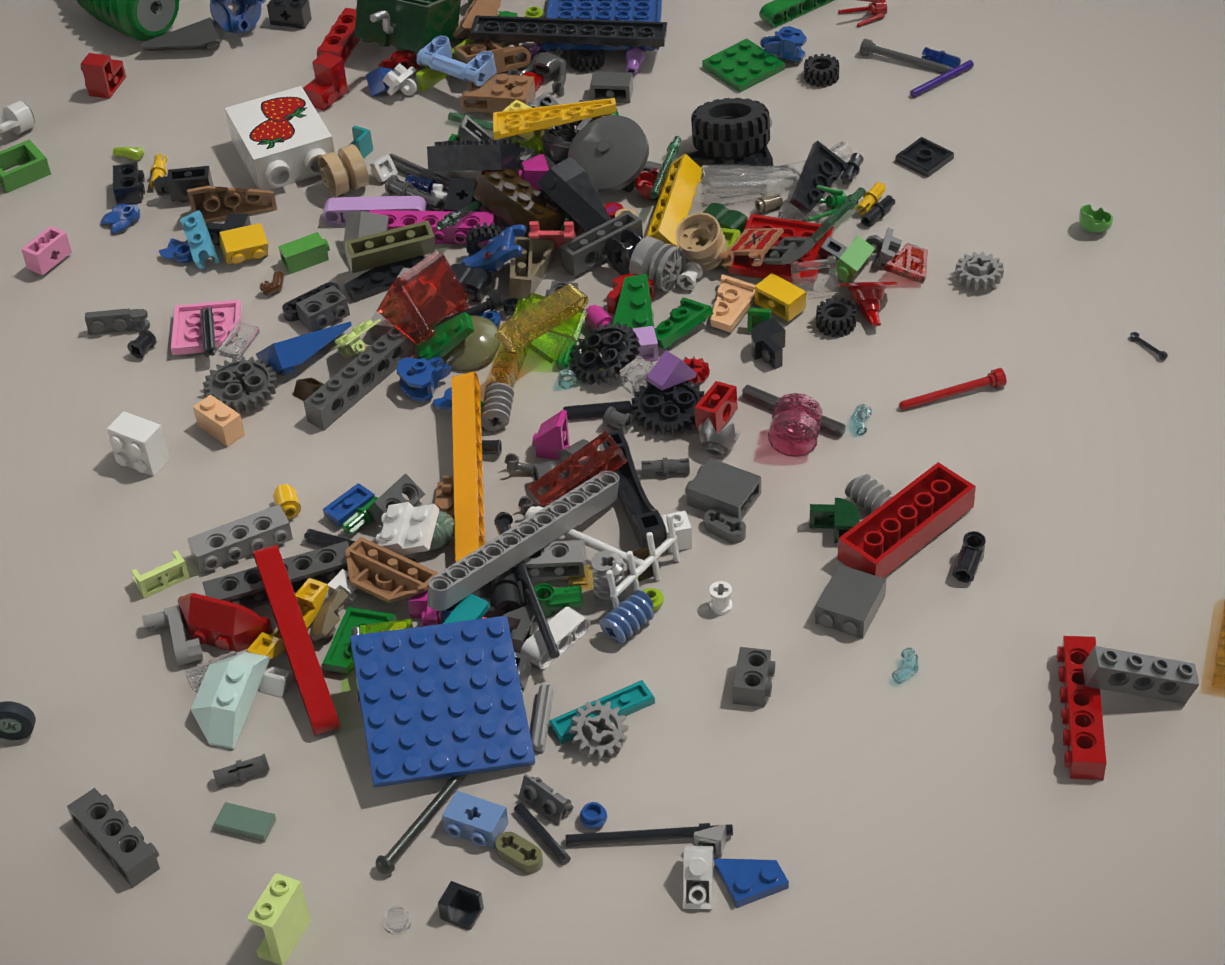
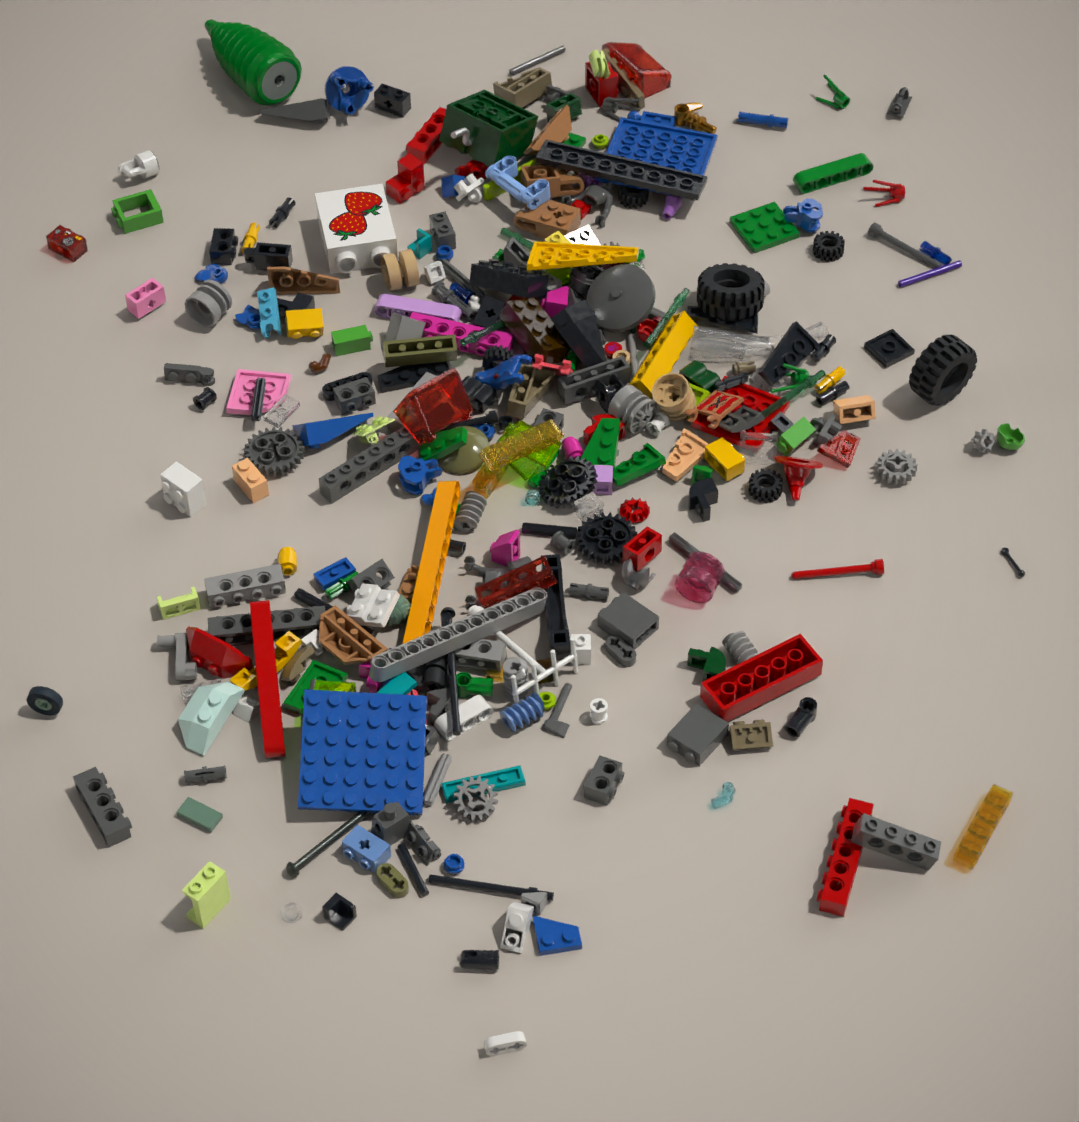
camera: 10 degrees right, 5 degrees up
(102, 75) = (223, 135): red brick -> none
(124, 242) = (208, 303): none -> light grey wheel
(128, 152) = (230, 215): lime arm -> none
(189, 139) = (282, 212): none -> black pin
(306, 387) = (326, 464): dark brown slope -> none
(382, 127) = (442, 230): none -> dark grey brick
(389, 147) = (444, 252): none -> blue plate
(500, 779) = (391, 823): none -> dark grey torso
(612, 85) = (645, 229): dark grey brick -> none
(634, 205) = (633, 354): none -> light grey bar
(662, 928) = (479, 959): none -> black hinge
(666, 624) = (552, 724): none -> dark grey piece
(669, 372) = (613, 510): medium lavender slope -> none
(761, 217) = (731, 381): none -> black axle
(861, 412) = (753, 580): clear light blue arm -> none
(911, 220) = (854, 409): none -> light nougat brick
(916, 589) = (750, 735): none -> dark tan bracket
(999, 160) = (943, 370): none -> black tyre
(1066, 227) = (978, 440): none -> light grey gear

